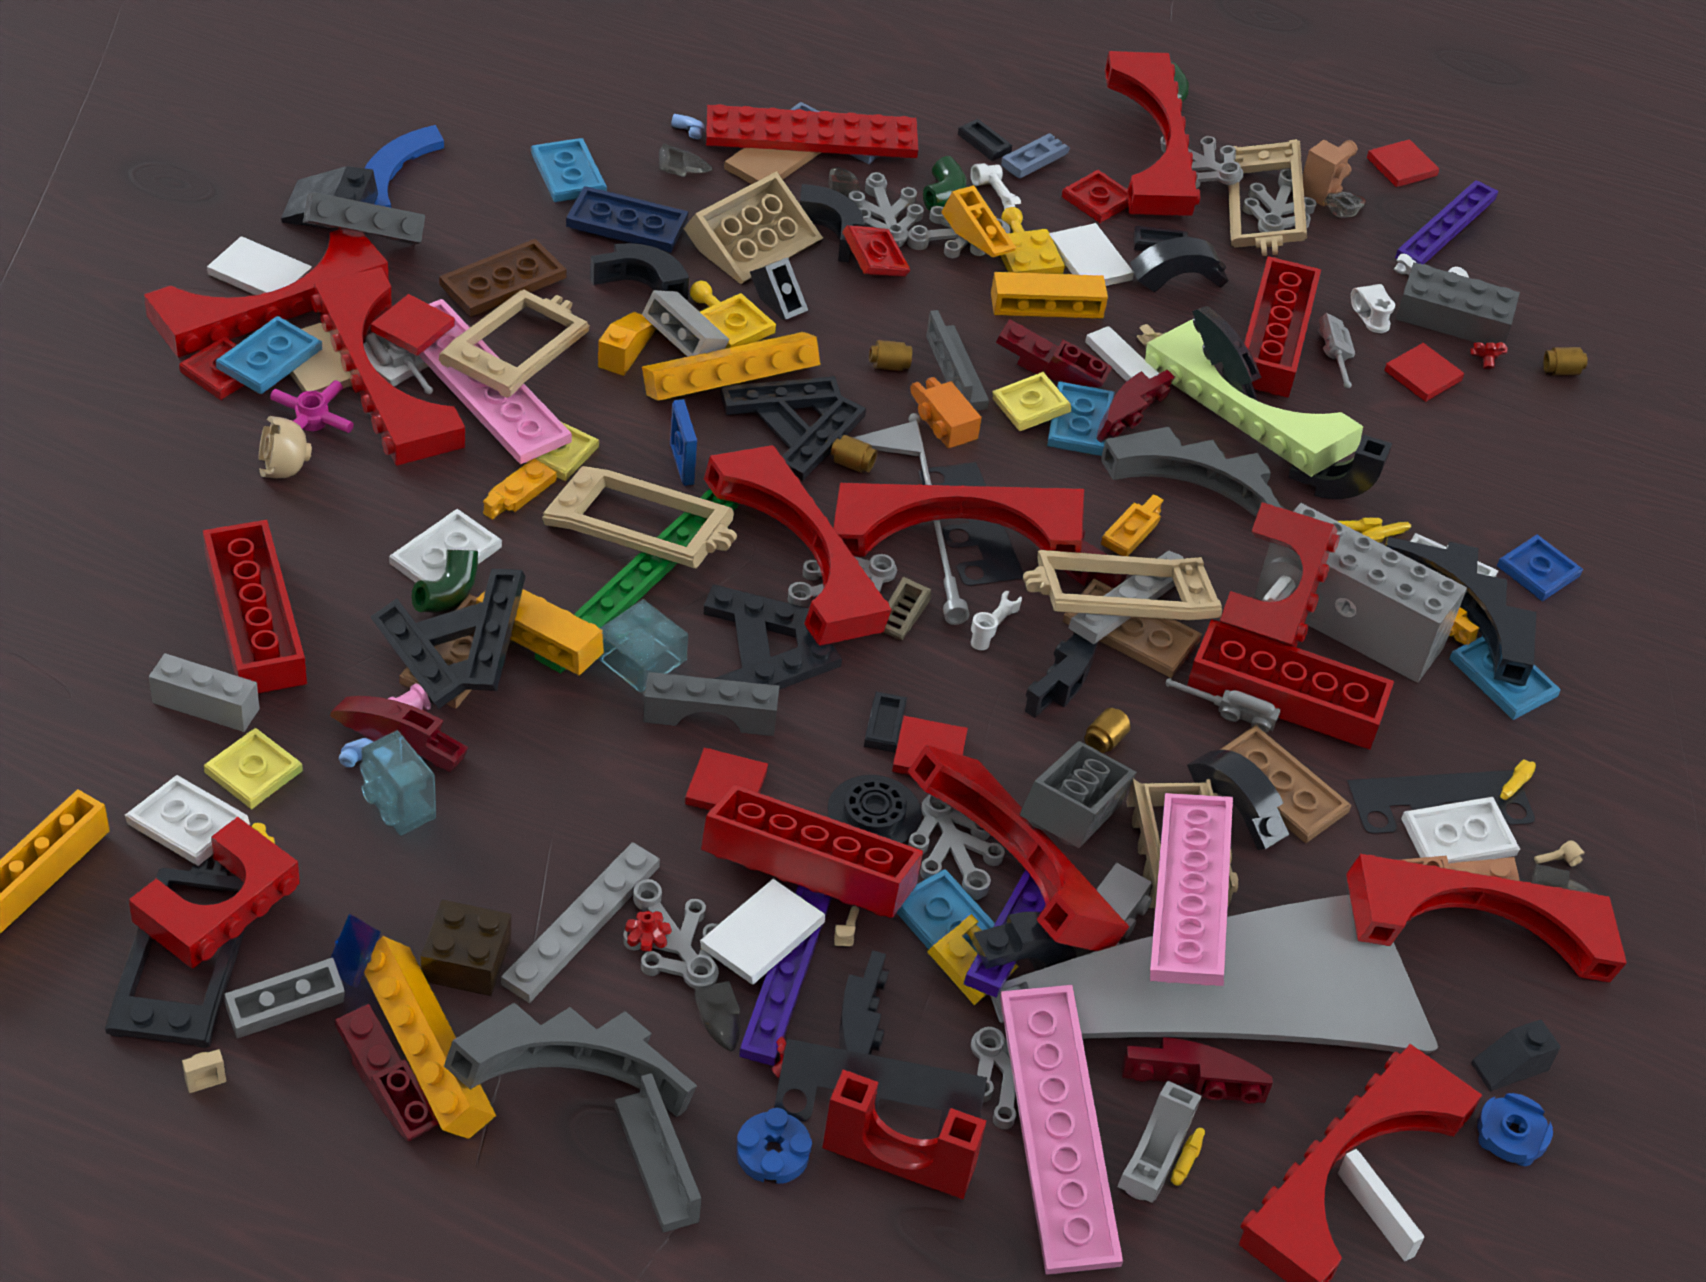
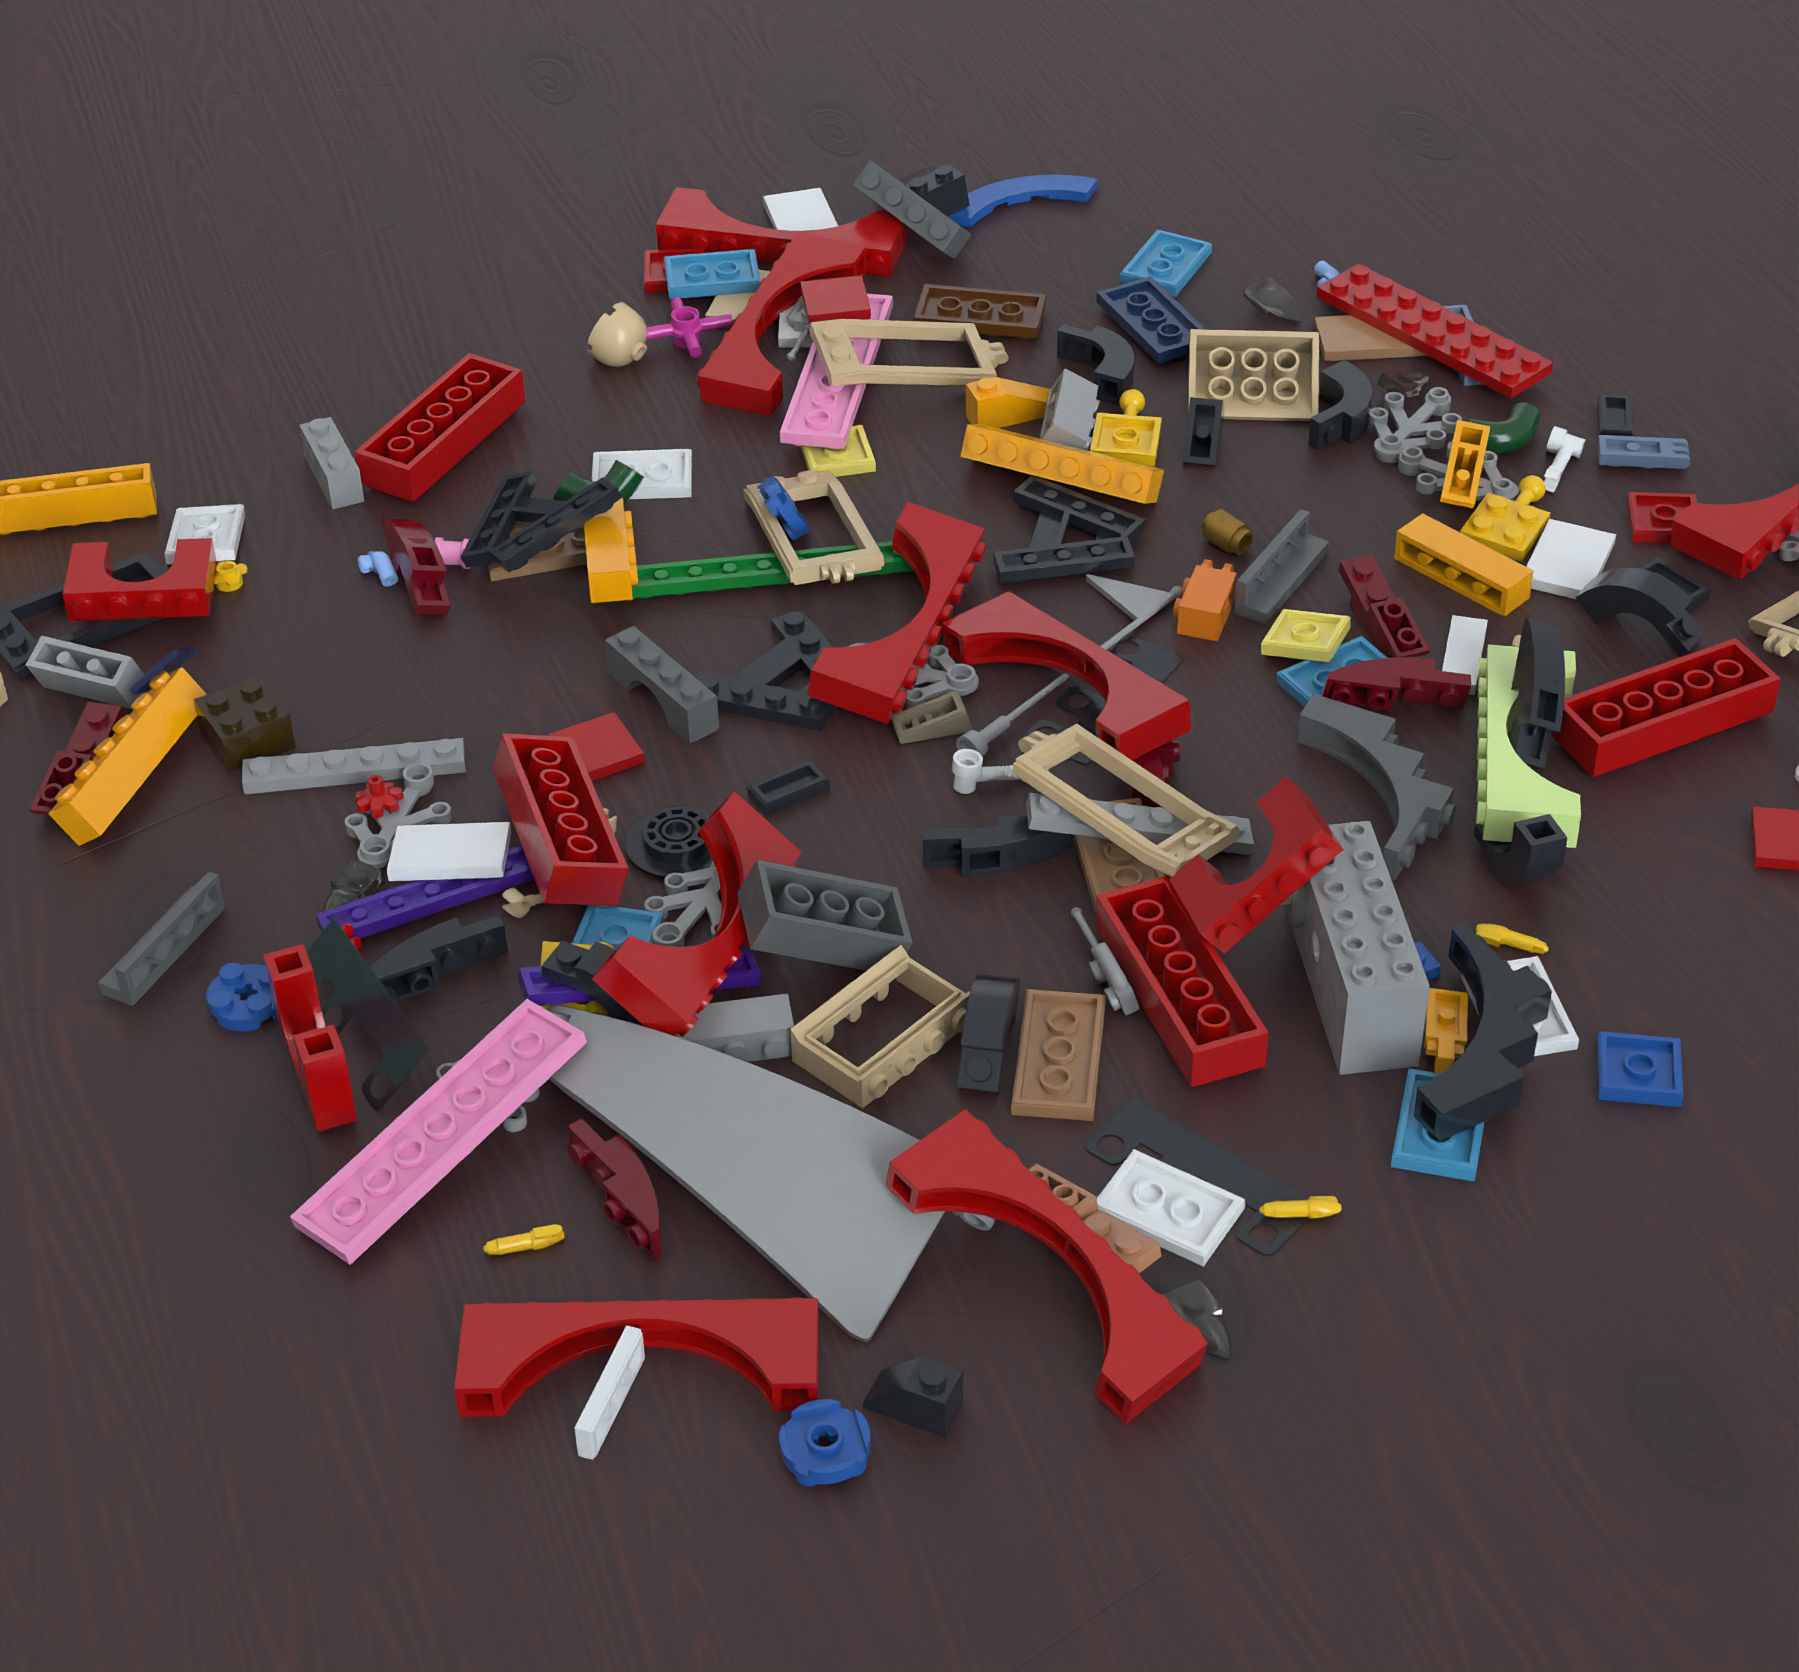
camera: 55 degrees right, 5 degrees down
(253, 768) = (299, 532): light yellow tile -> none
(398, 783) = (353, 589): clear light blue brick -> none
(516, 1042) = (162, 789): dark grey arch -> none
(519, 488) = (759, 462): light orange hinge -> none
(605, 509) = (784, 507): none -> blue plate
(642, 643) = (675, 611): clear light blue brick -> none
(683, 442) = (926, 482): blue tile -> none
(854, 454) = (1070, 584): pearl gold brick -> none
(876, 251) = (1338, 445): red tile -> none
(918, 732) = (802, 823): red tile -> none
(1107, 730) = (957, 908): pearl gold brick -> none
(1133, 526) = (1242, 780): light orange hinge -> none
(1160, 1142) = (506, 1209): light grey arch -> none
(1192, 890) = (783, 1034): bright pink plate -> none
(1337, 343) = (1716, 761): light grey piece -> none
(1363, 524) = (1483, 914): yellow piece -> none
(1569, 851) = (1251, 1296): tan hand -> none

